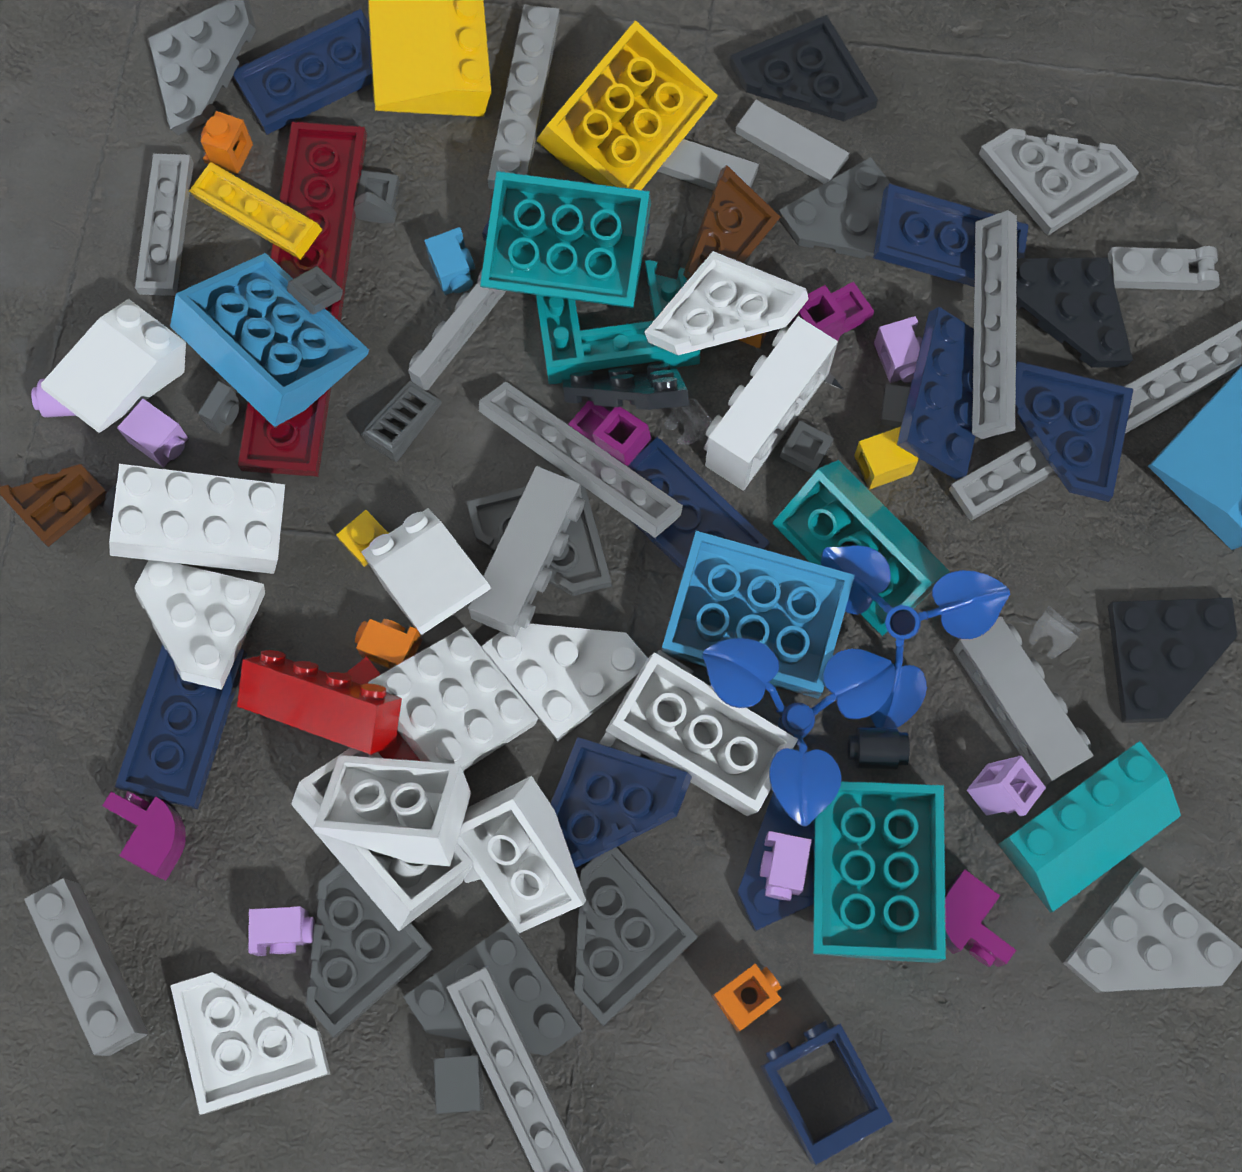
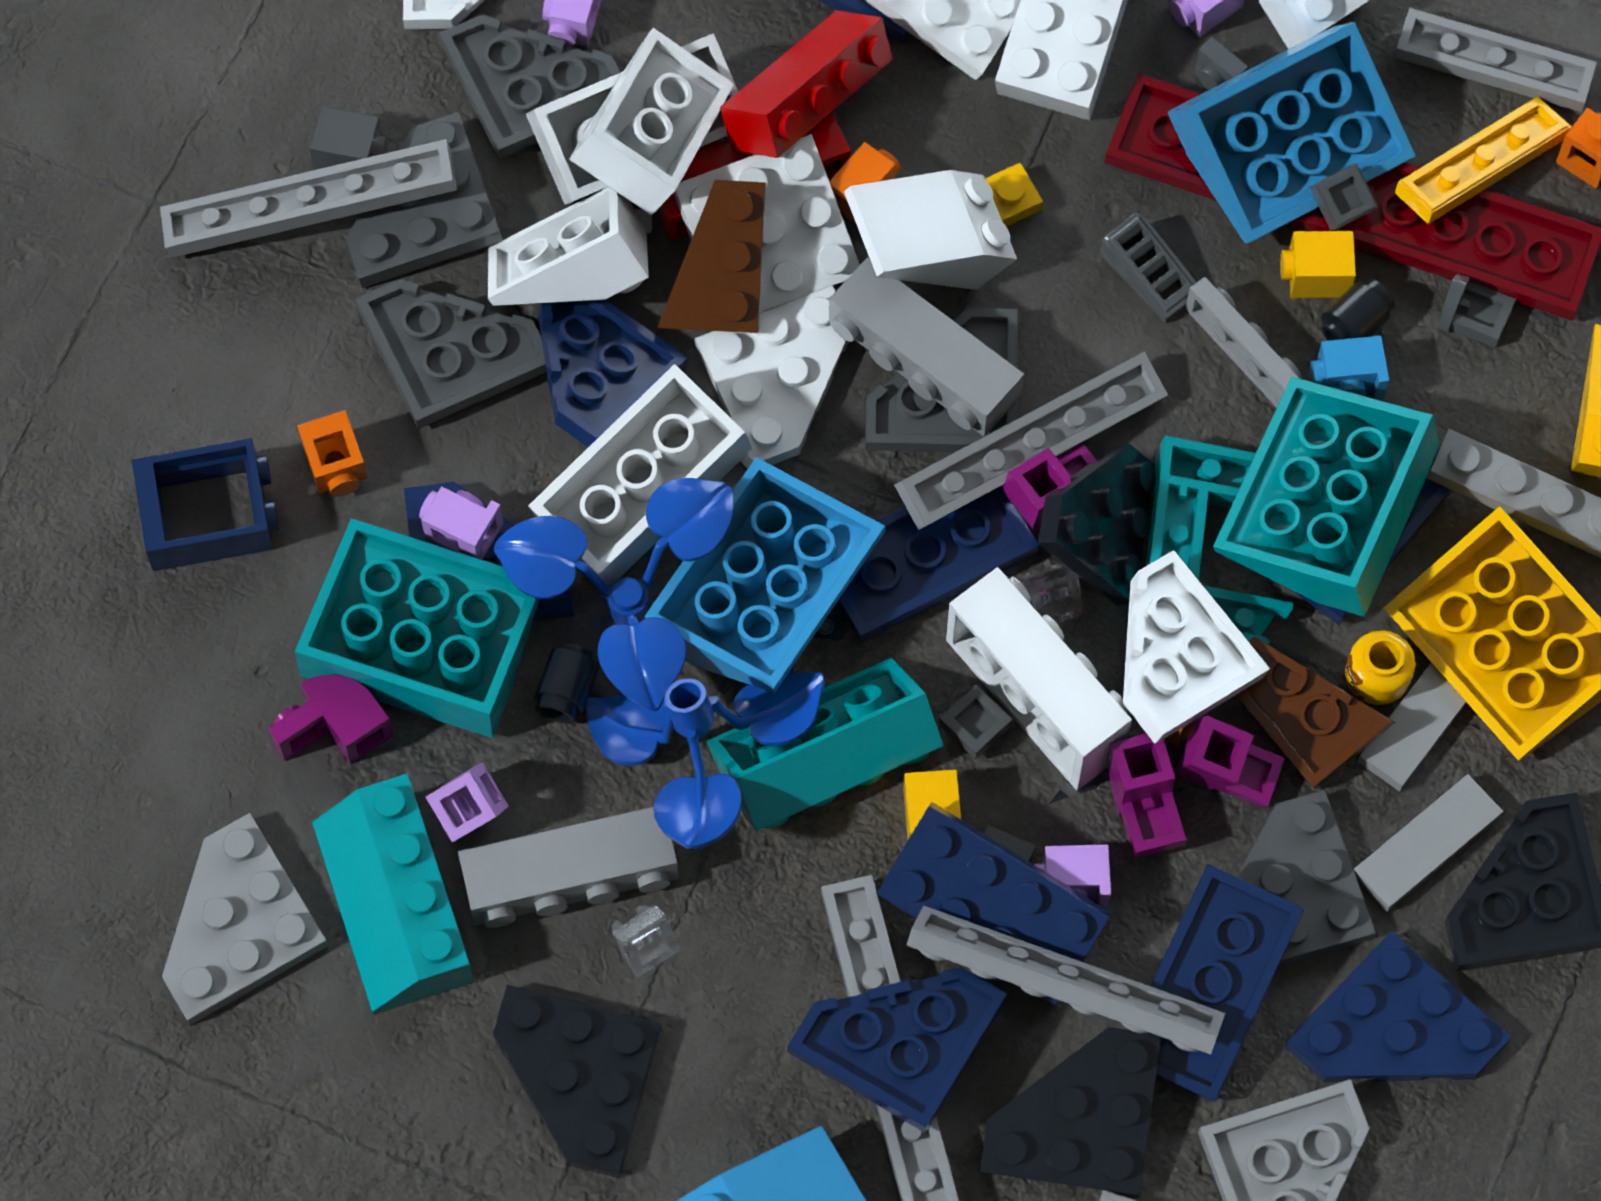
camera: 105 degrees right, 5 degrees down
(369, 301) = (1319, 264): none -> yellow brick
(404, 268) = (1358, 311): none -> black brick
(498, 721) = (723, 264): none -> reddish brown wing
(681, 189) = (1380, 667): none -> yellow head
(790, 261) = (1226, 761): none -> magenta brick
(926, 135) = (1396, 1024): none -> dark blue plate

